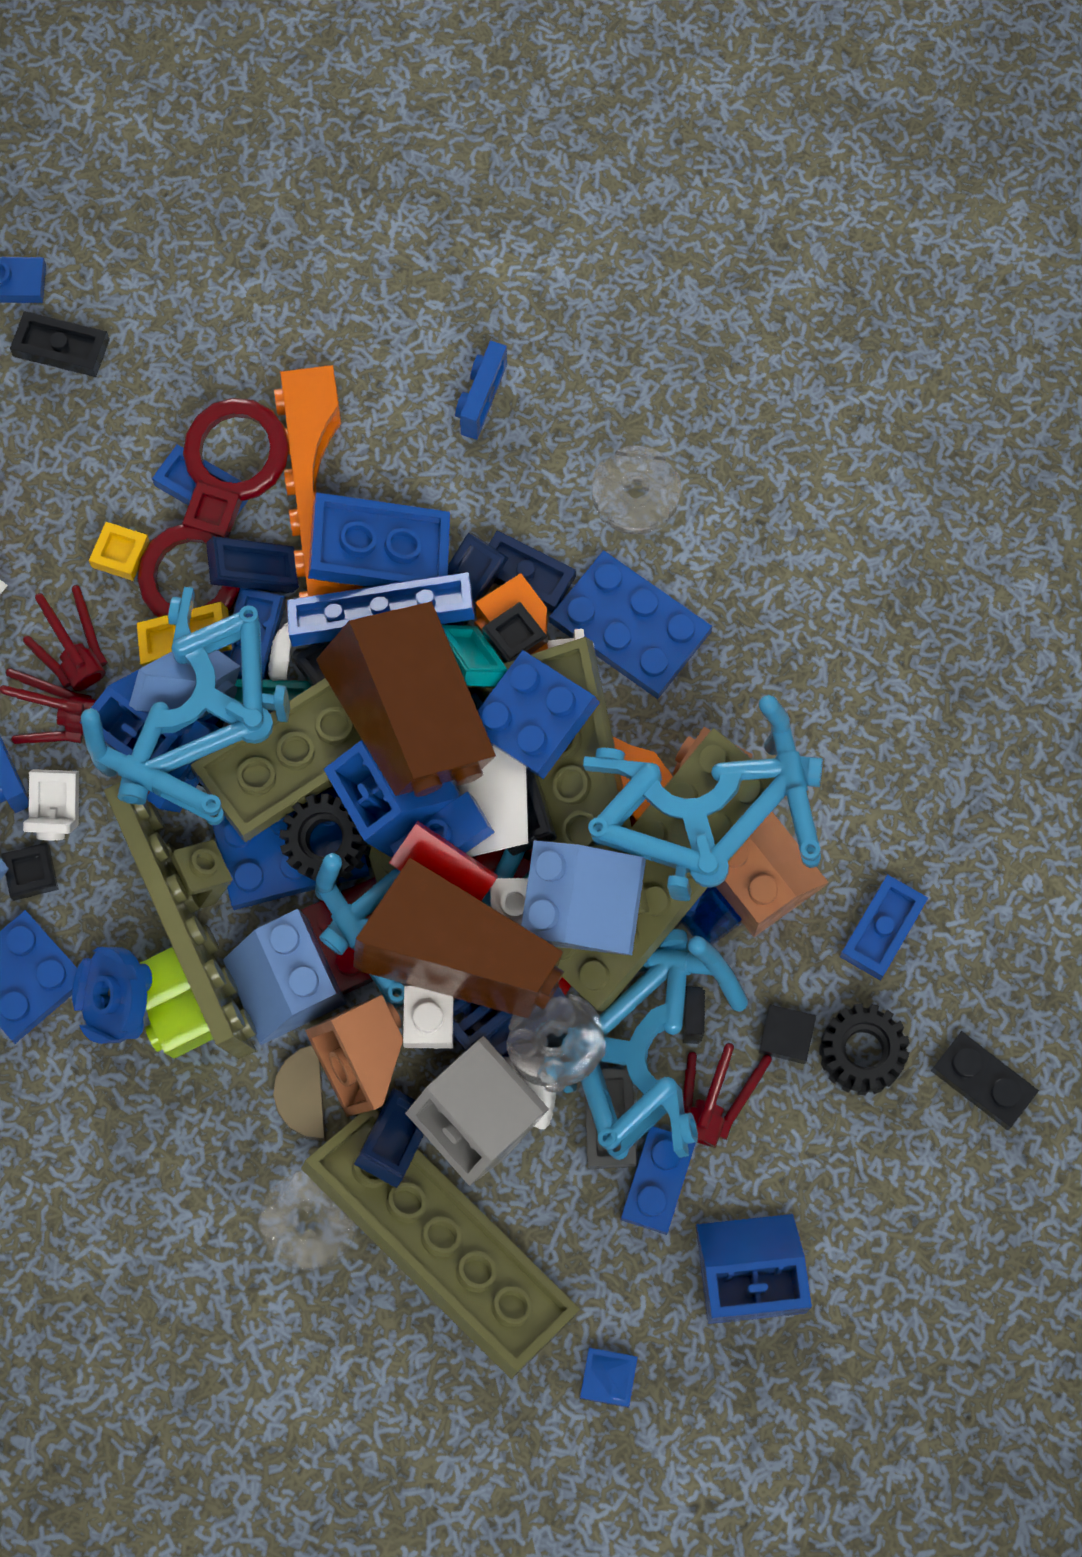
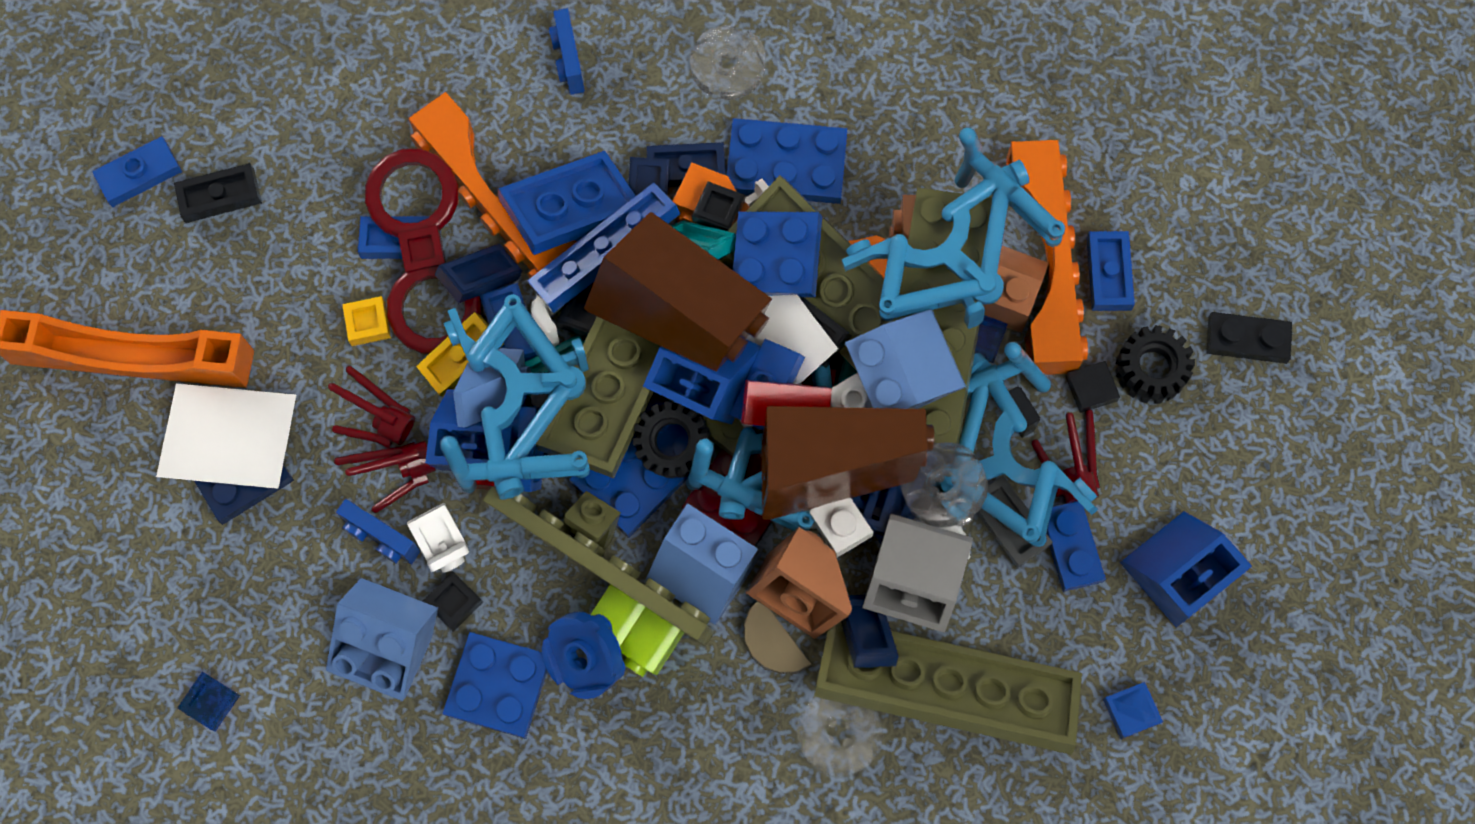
camera: 30 degrees left, 0 degrees up
(780, 953) = (1054, 334): none -> orange arch

